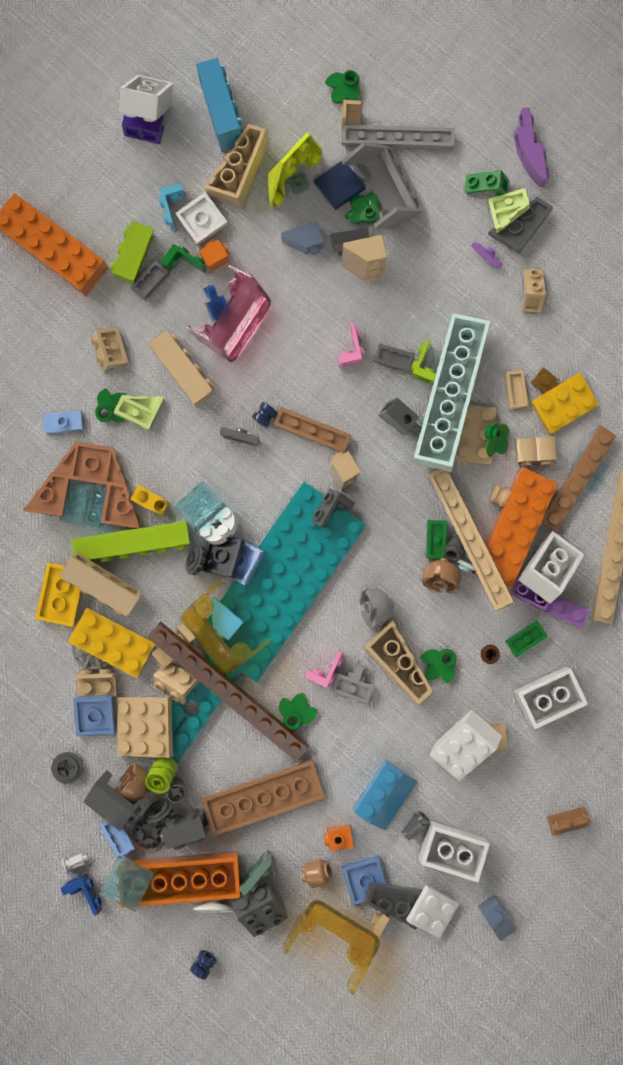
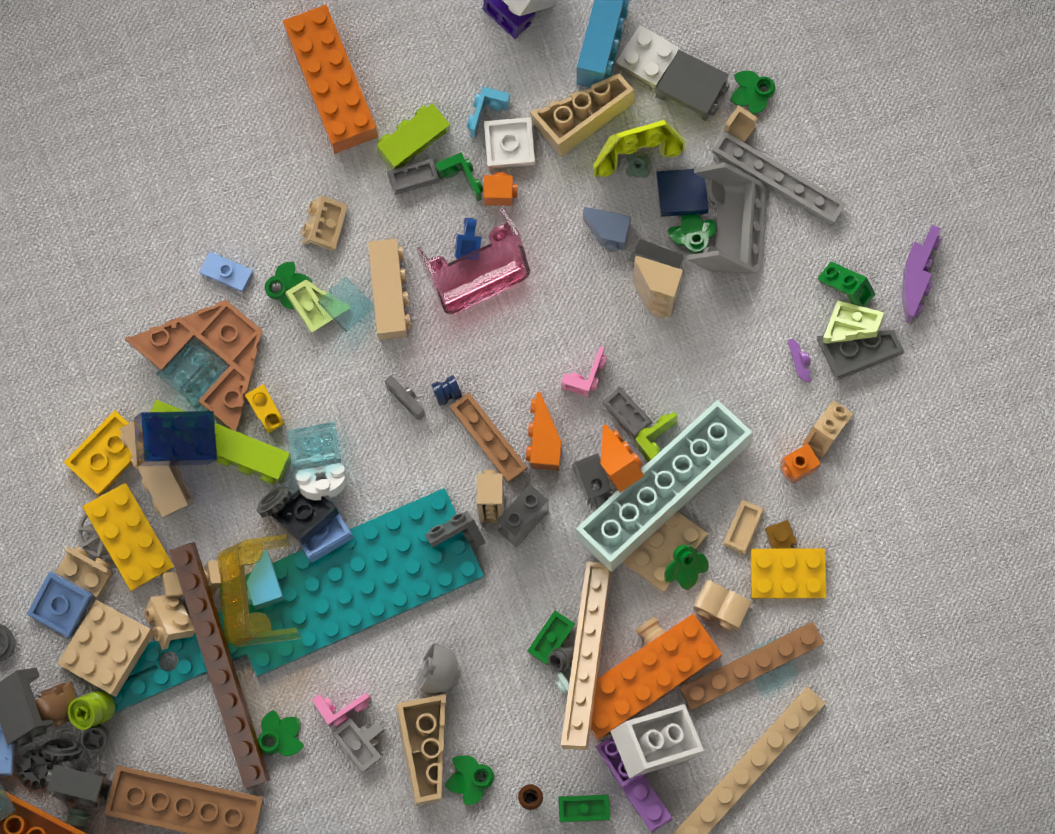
camera: 35 degrees right, 10 degrees down
(102, 559) = (175, 438): none -> clear blue brick
(159, 396) = (346, 304): none -> clear light blue piece
(197, 849) = (77, 816): none -> sand green plate
(258, 103) = (647, 56): none -> white plate
(302, 103) = (693, 84): none -> dark grey panel
(352, 409) = (546, 443): none -> orange slope
(370, 469) = (523, 515): none -> dark grey panel
(412, 394) = (617, 460): none -> orange slope
(441, 575) = (530, 680): medium nougat cylinder -> none
(529, 324) = (799, 463): none -> orange brick

